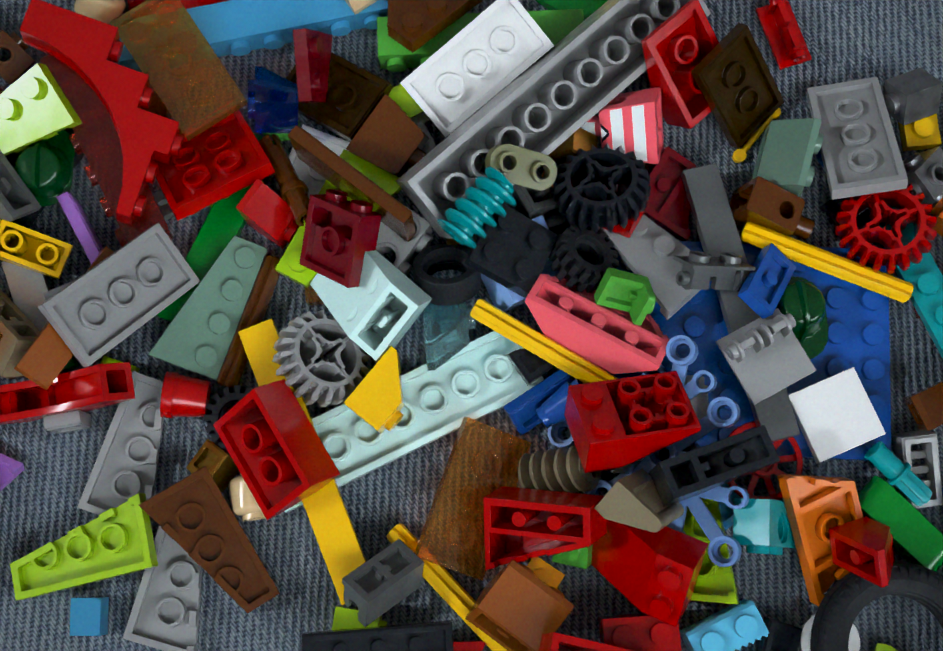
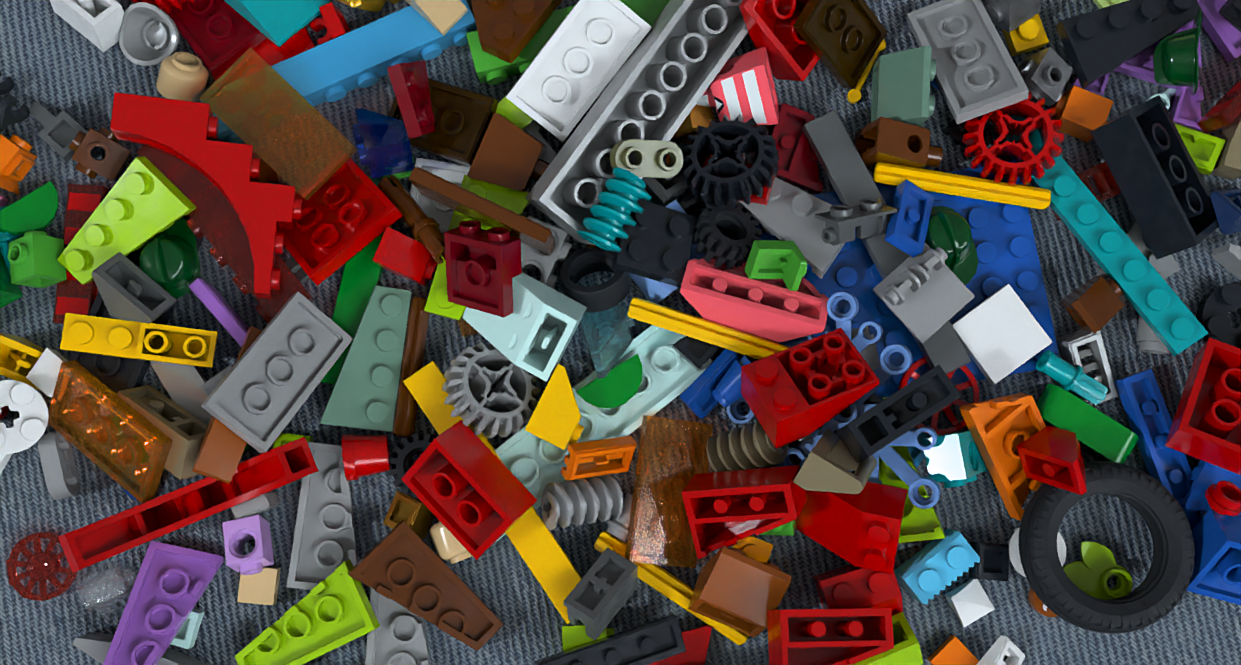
camera: 15 degrees left, 5 degrees up
(47, 443) = (239, 532): none -> lavender brick
(51, 500) = (260, 587): none -> tan tile
(384, 485) = (581, 501): none -> light grey piece
(413, 443) = (601, 454): none -> orange tile
(416, 521) = (620, 526): none -> light grey pin
(443, 383) = (616, 387): none -> green tile

